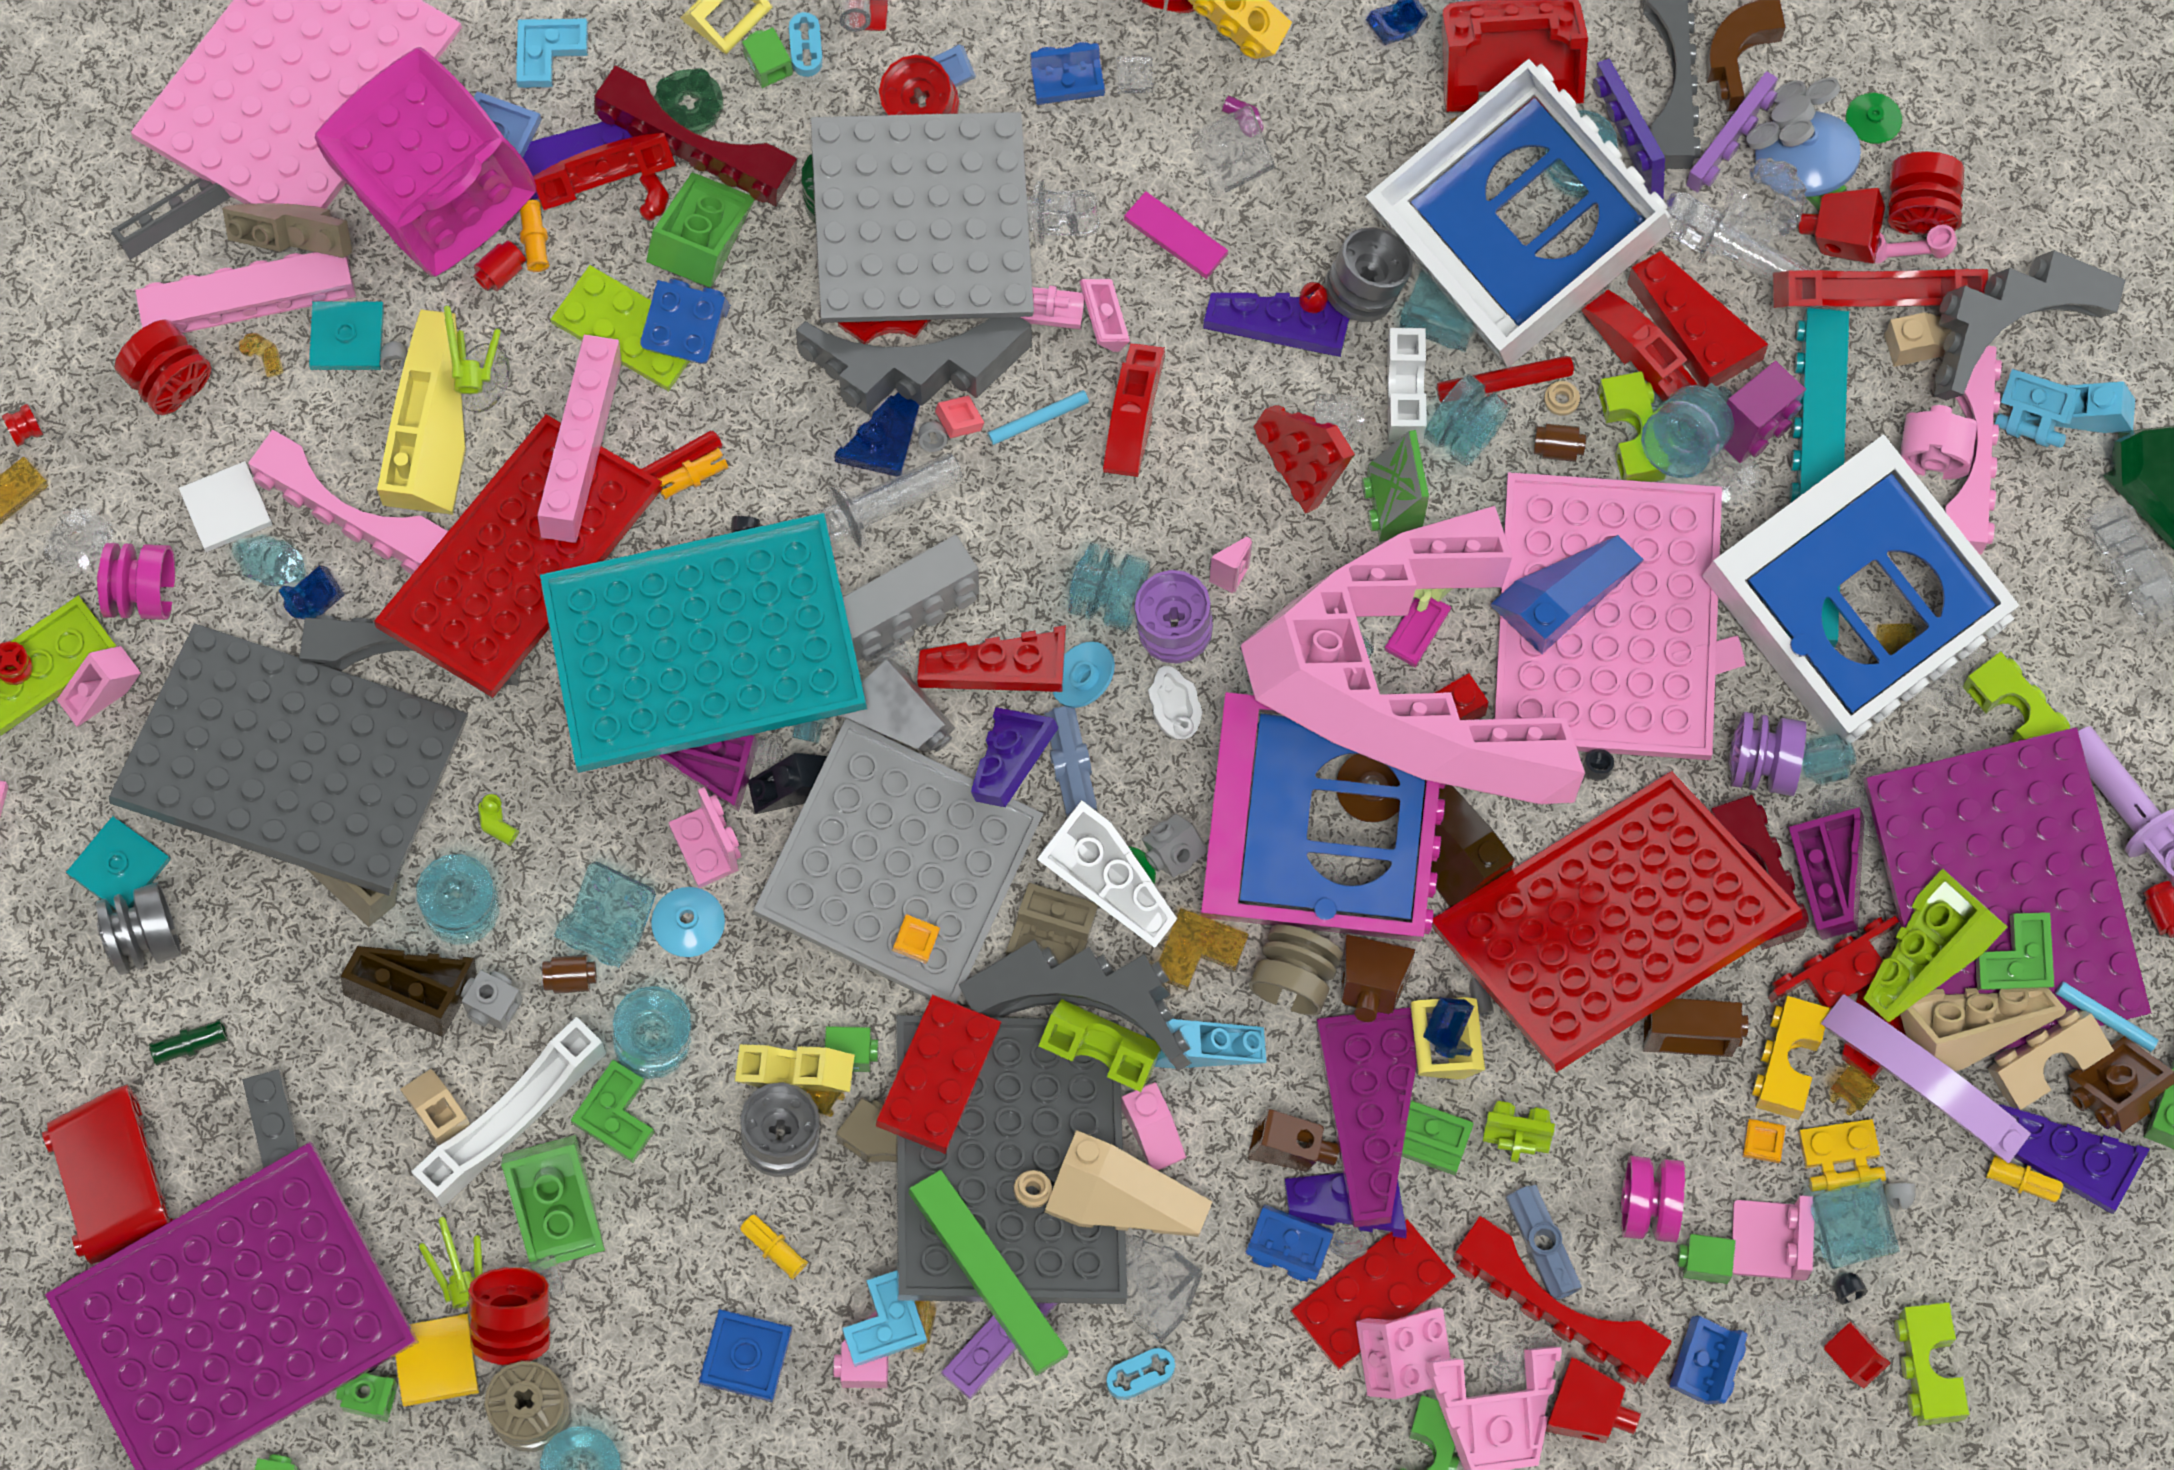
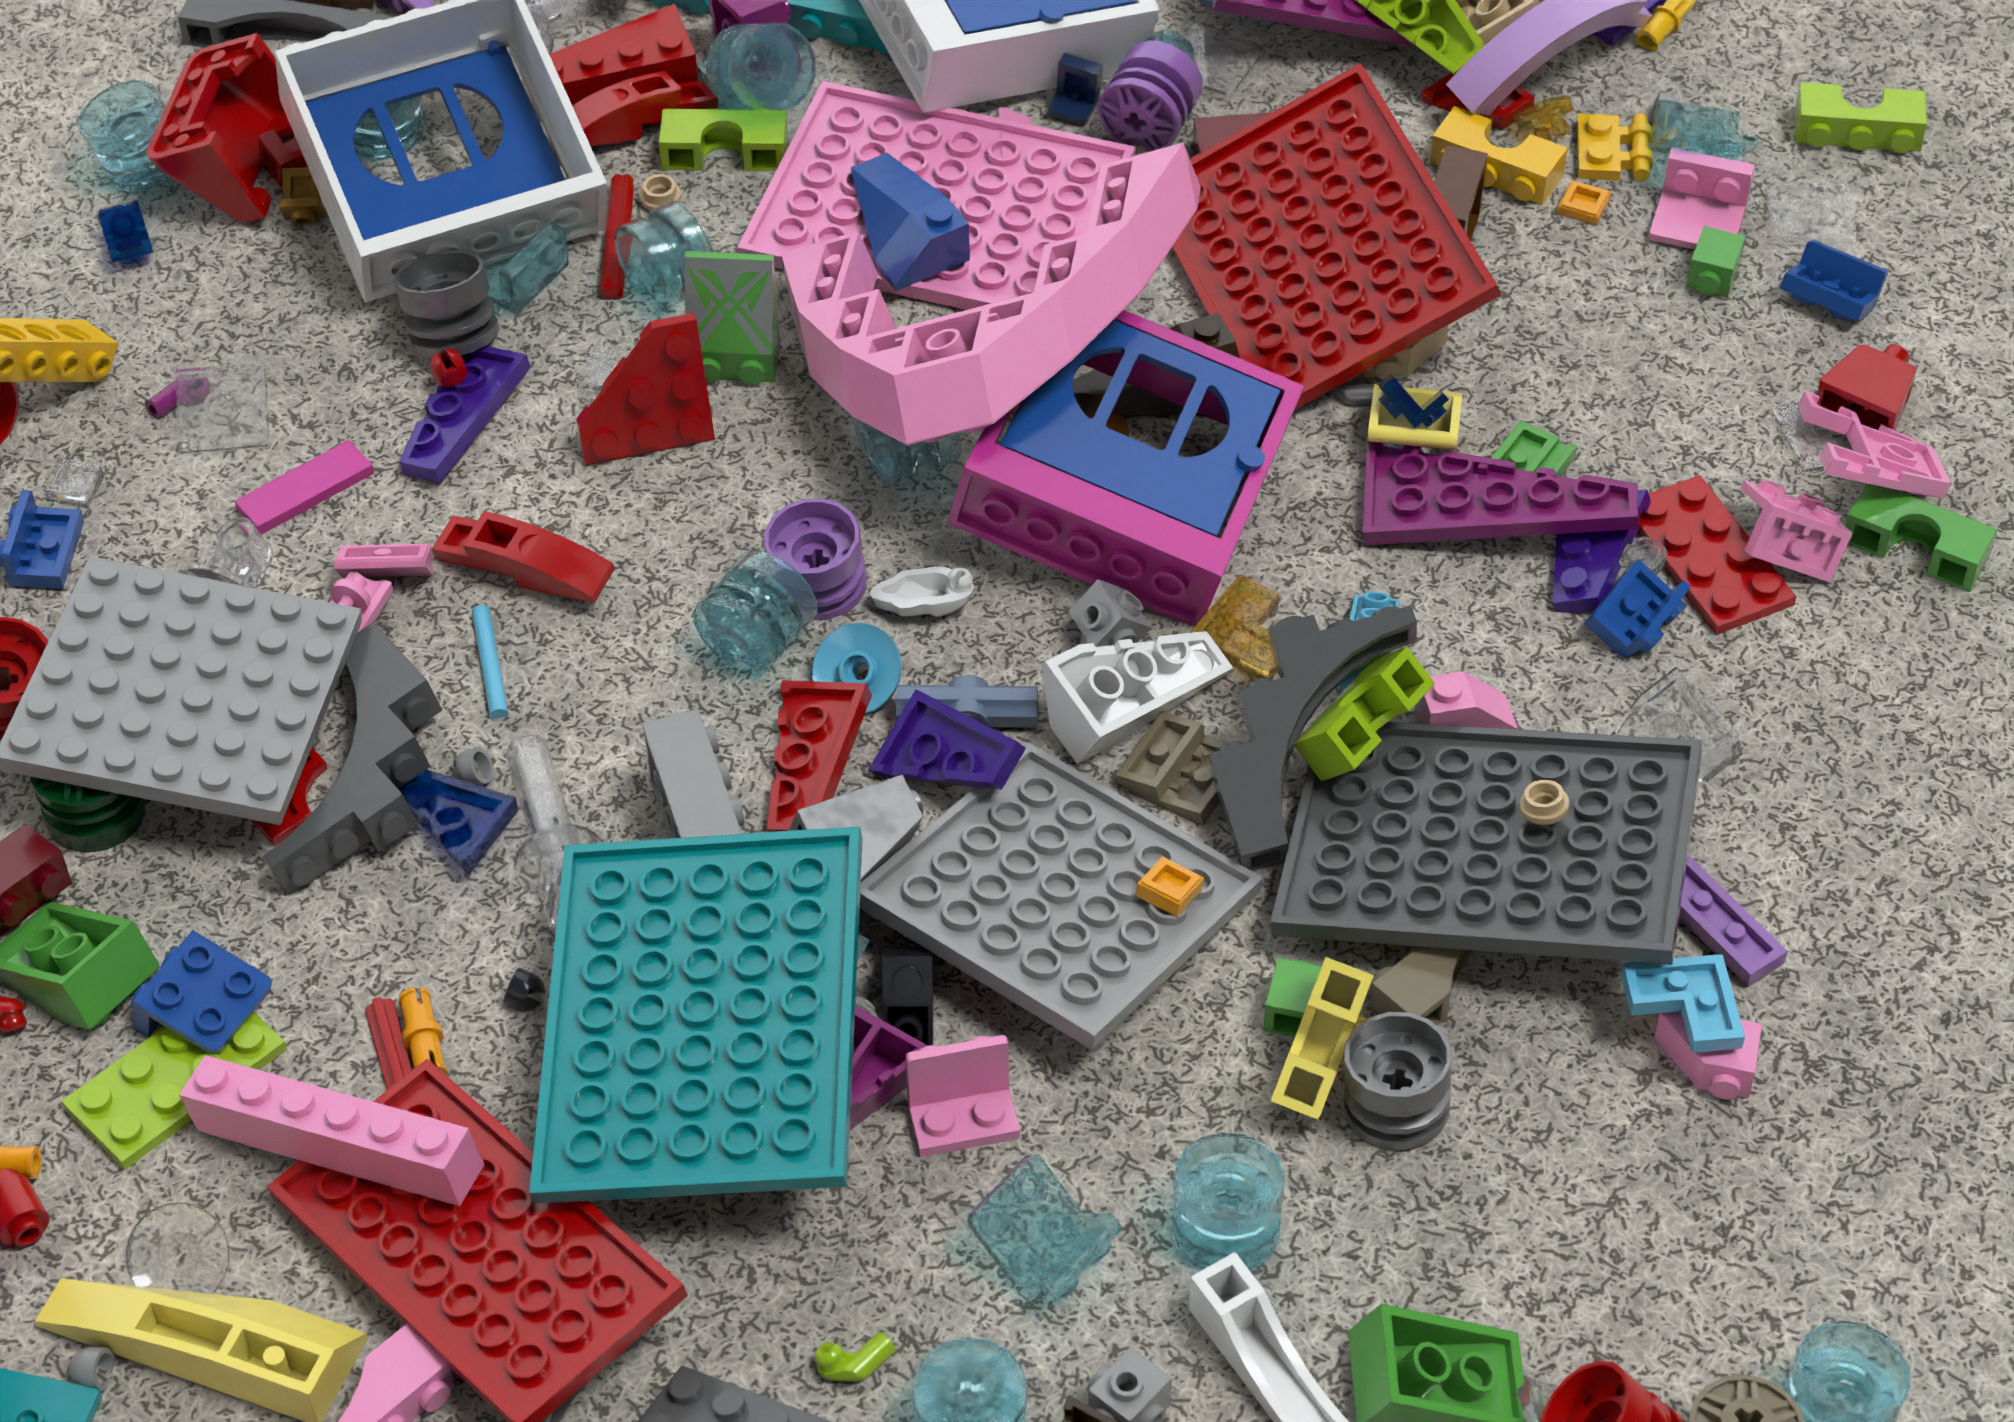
camera: 75 degrees left, 20 degrees down
(467, 373) = (172, 1260): lime plant -> none
(569, 974) = (1110, 1302): reddish brown brick -> none
(605, 1114) = (1319, 1295): bright green plate -> none
(689, 938) = (1080, 1171): medium azure dish -> none
(745, 1355) = (1694, 1190): blue plate -> none
(773, 1246) = (1547, 1133): yellow axle -> none
(938, 1074) = (1366, 882): red plate -> none
(959, 416) = (460, 732): coral plate -> none
(988, 1272) = (1653, 856): bright green tile -> none
(1117, 1190) = (1557, 726): tan wedge -> none
(1137, 1365) = (1785, 780): medium azure beam -> none
(1231, 565) = (769, 483): bright pink slope -> none
(1276, 1142) = (1519, 561): reddish brown torso -> none
(1296, 963) = (1301, 525): dark tan wheel -> none
(1373, 976) = (1324, 469): reddish brown torso -> none
(1406, 382) = (566, 306): white arch -> none
(1519, 1133) = (1536, 387): lime hips -> none
(1533, 1221) = (1673, 390): sand blue piece -> none
(1559, 442) = (716, 201): reddish brown brick -> none
(1625, 1344) = (1687, 432): red arch -> none
(1649, 1198) = (1647, 278): dark pink wheel -> none
(1769, 695) = (1076, 89): none -> dark blue bracket
(1831, 869) = (1282, 69): magenta wedge -> none
(1841, 973) = (1409, 94): red bracket -> none
(1848, 1284) = (1765, 166): black hinge -> none
(1856, 1355) = (1843, 167): red panel -> none

